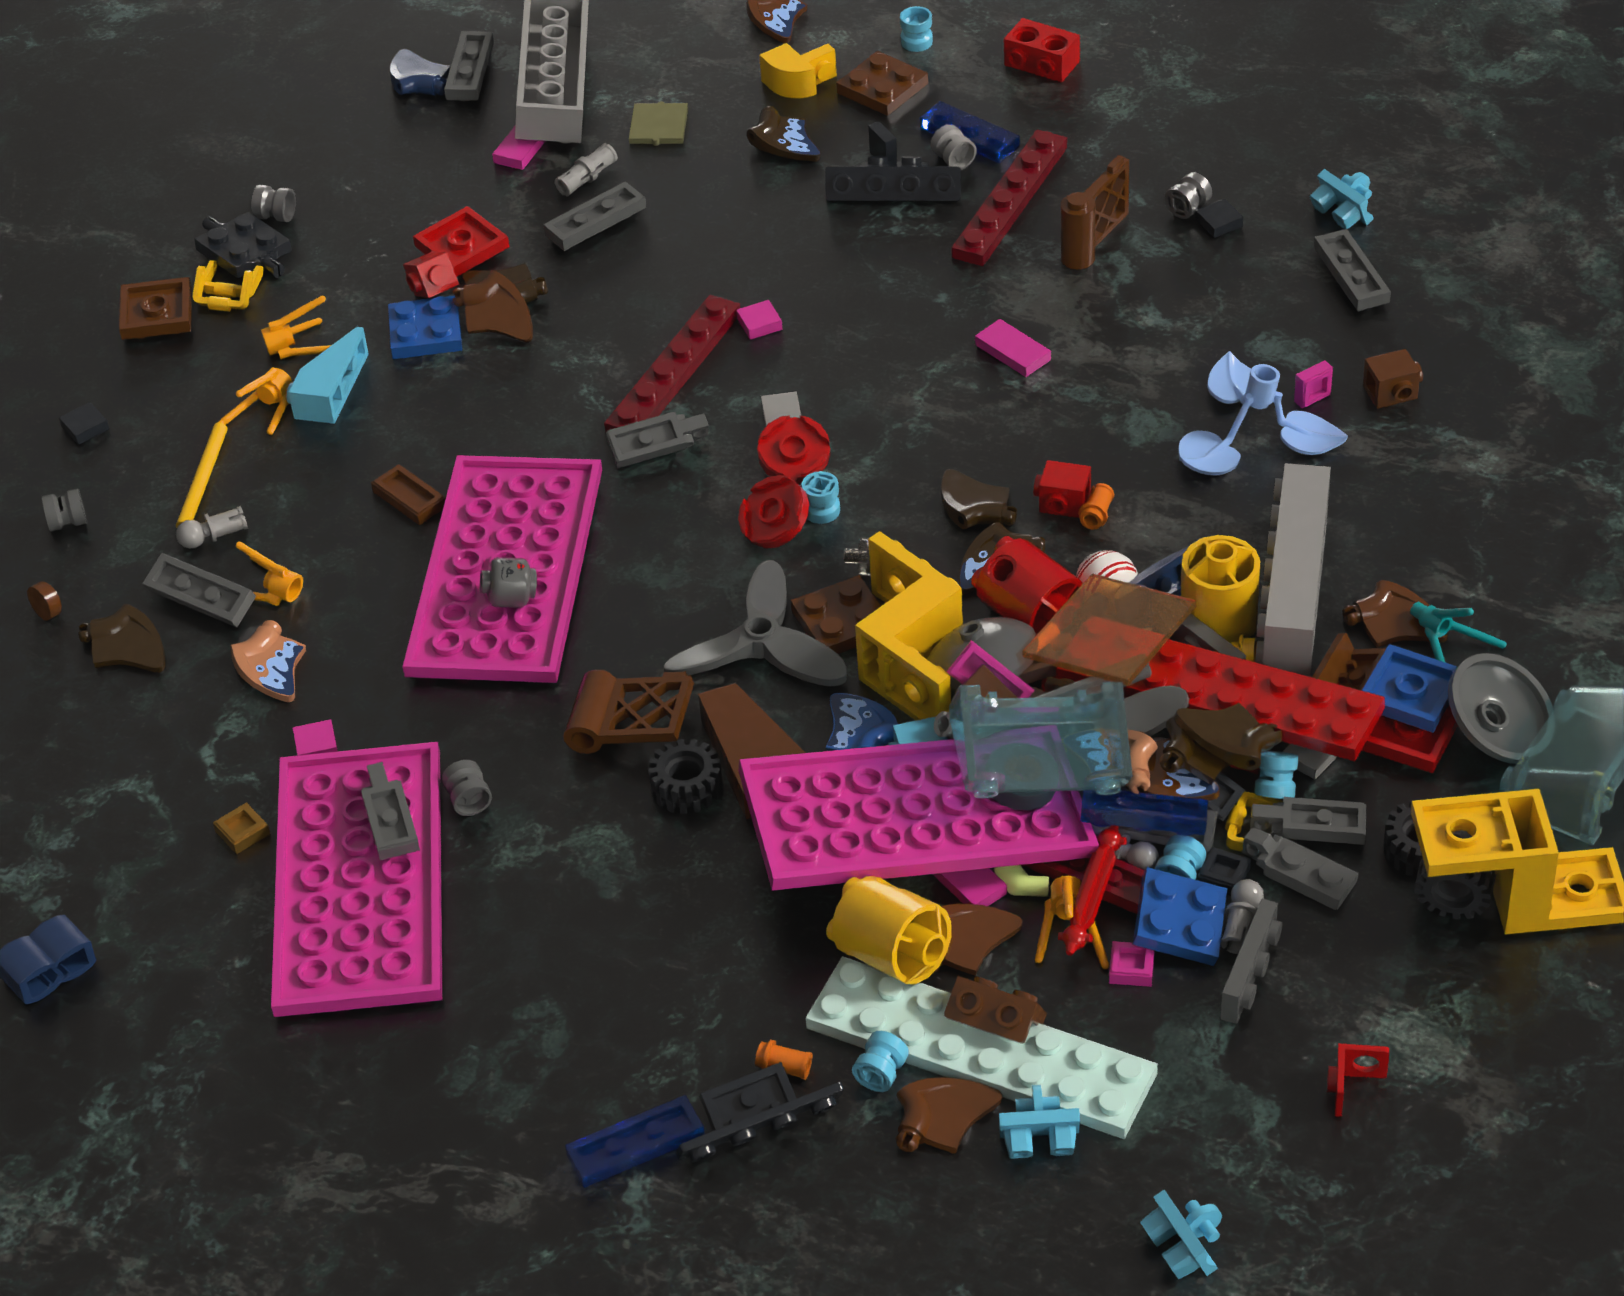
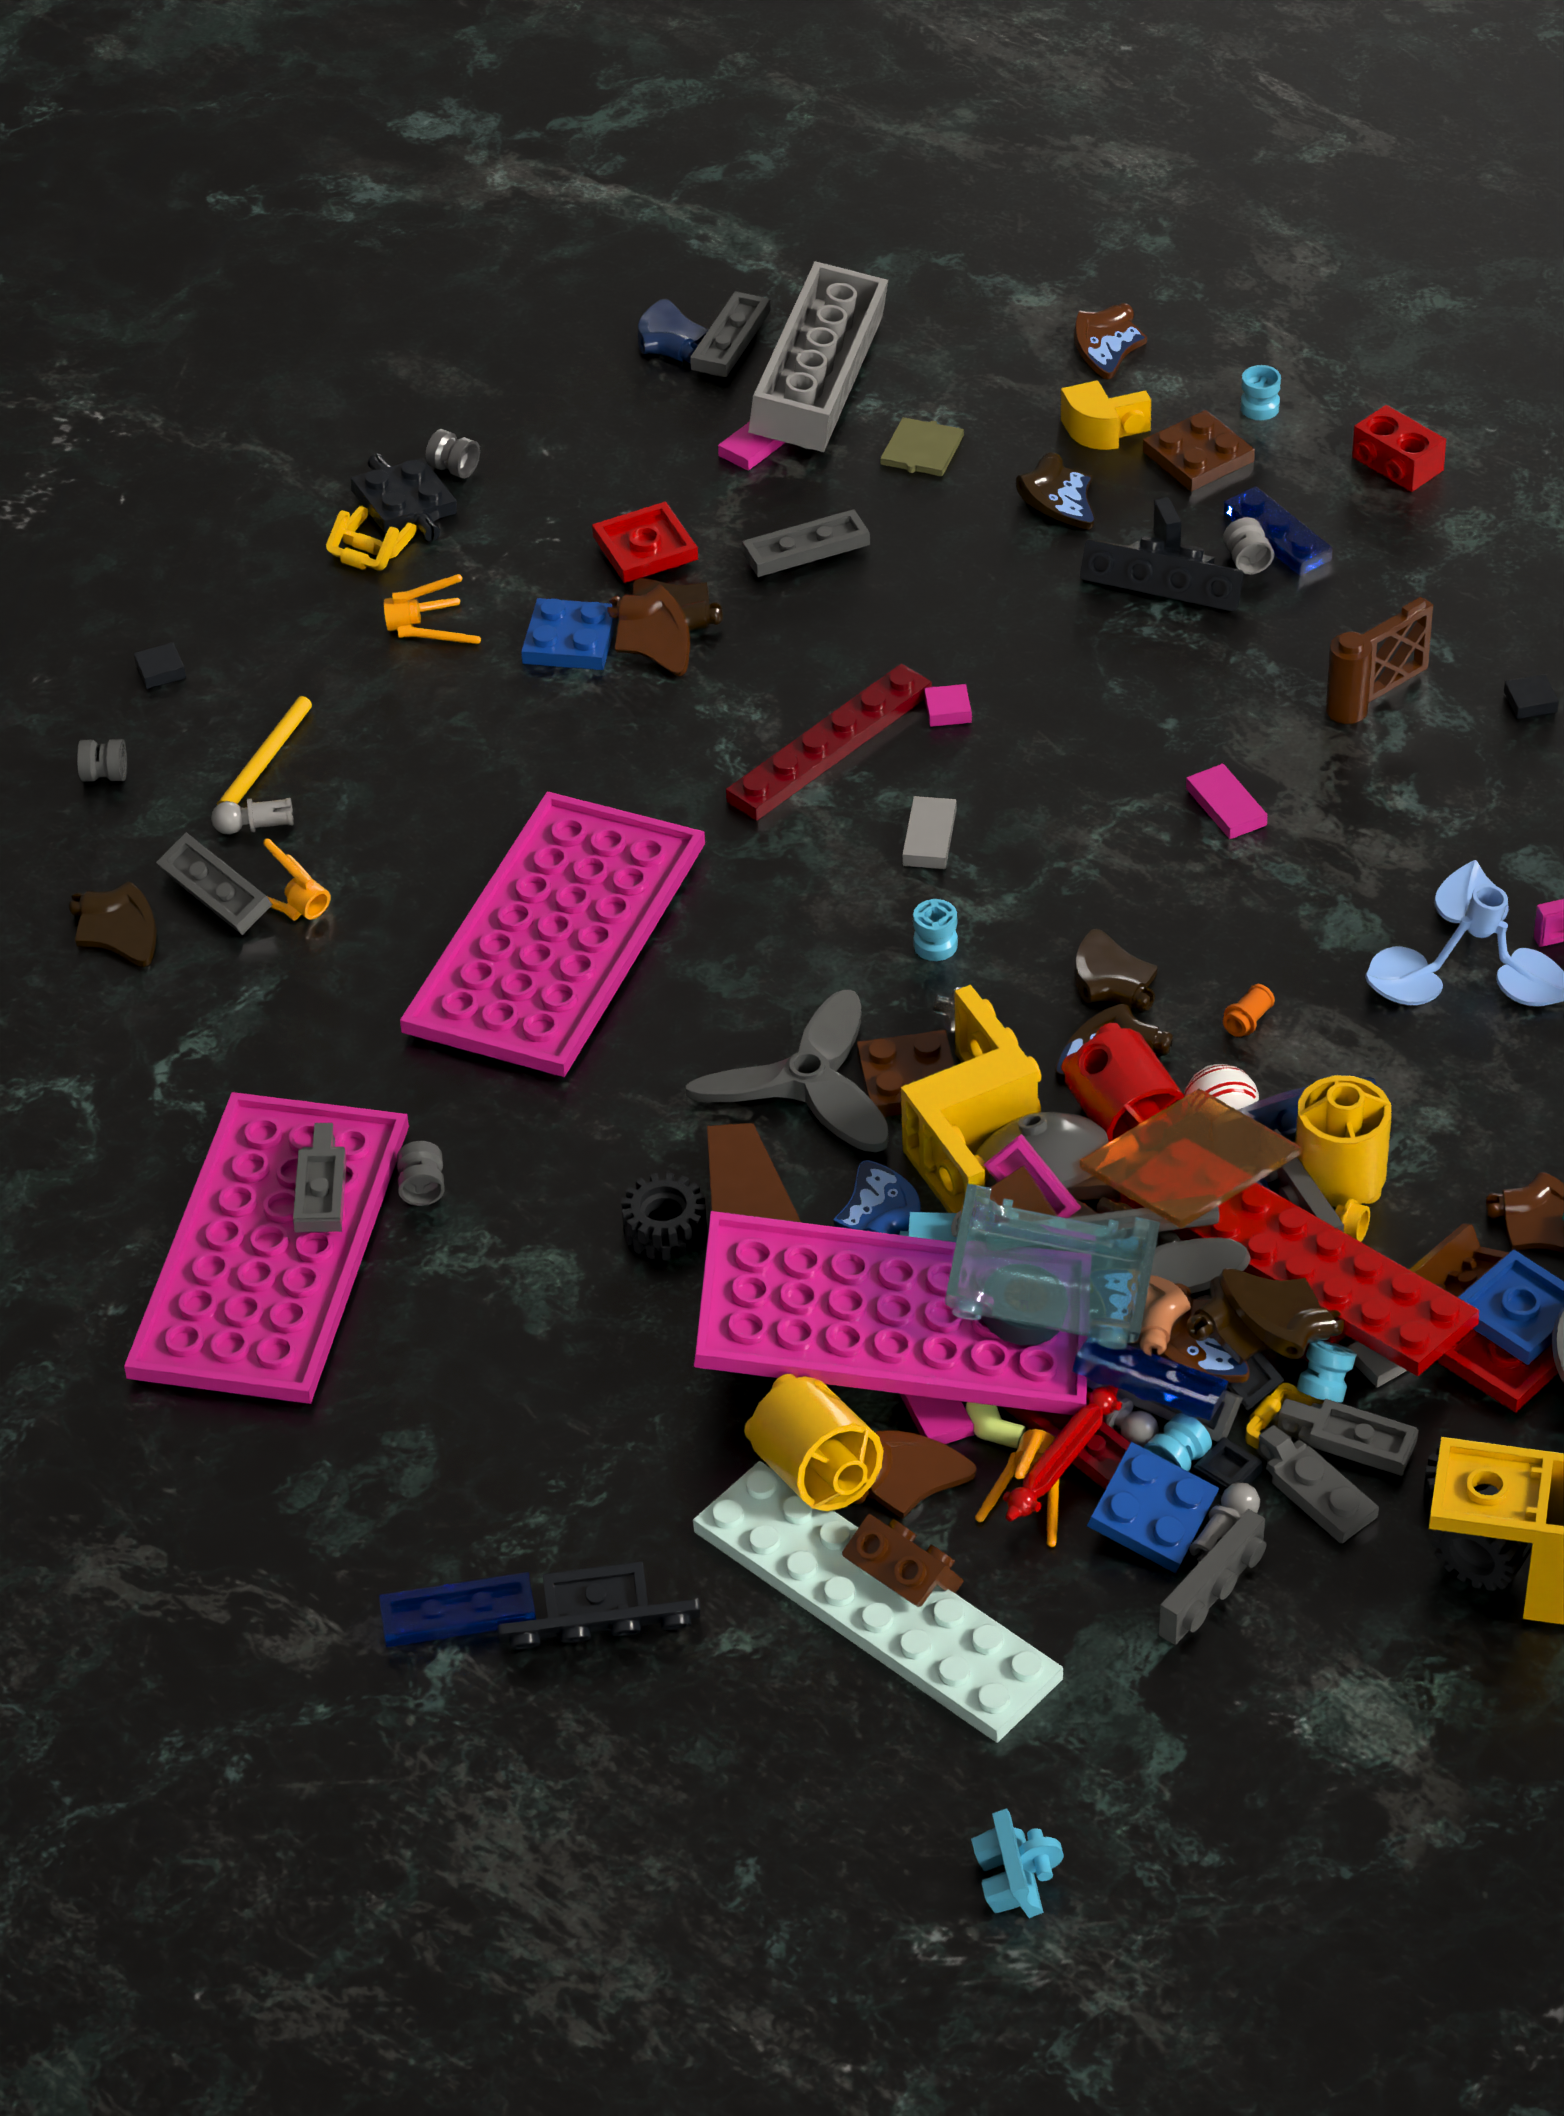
camera: 15 degrees right, 0 degrees up
(44, 600) = (46, 858): reddish brown tile -> none
(155, 308) = (281, 549): reddish brown plate -> none
(241, 828) = (166, 1161): pearl gold tile -> none
(269, 661) = (262, 981): nougat arm -> none
(270, 389) = (374, 669): light orange plant -> none
(315, 738) = (280, 1080): dark pink tile -> none
(328, 379) = (439, 672): medium azure slope -> none
(408, 494) = (481, 824): reddish brown tile -> none
(430, 274) = (592, 574): red brick -> none
(509, 582) = (544, 951): dark grey head -> none
(586, 169) = (816, 485): light grey pin -> none
(602, 706) = (601, 1114): reddish brown piece -> none
(655, 437) = (776, 818): dark grey hinge -> none
(773, 511) = (874, 935): red tile -> none
(793, 447) = (926, 865): red tile -> none
(794, 1061) = (656, 1561): orange pin -> none
(882, 1057) = (755, 1588): medium azure wheel -> none
(942, 1111) = (805, 1660): reddish brown arm -> none
(1009, 197) = (1293, 620): dark red plate -> none
(1039, 1118) = (881, 1699): medium azure hips -> none
(1062, 488) = (1215, 979): red brick -> none
(1131, 964) = (1080, 1549): dark pink tile -> none
(1183, 197) = (1498, 663): flat silver wheel -> none
(1294, 570) = (1440, 1138): light grey brick -> none
(1347, 1067) = (1274, 1722): red bracket -> none

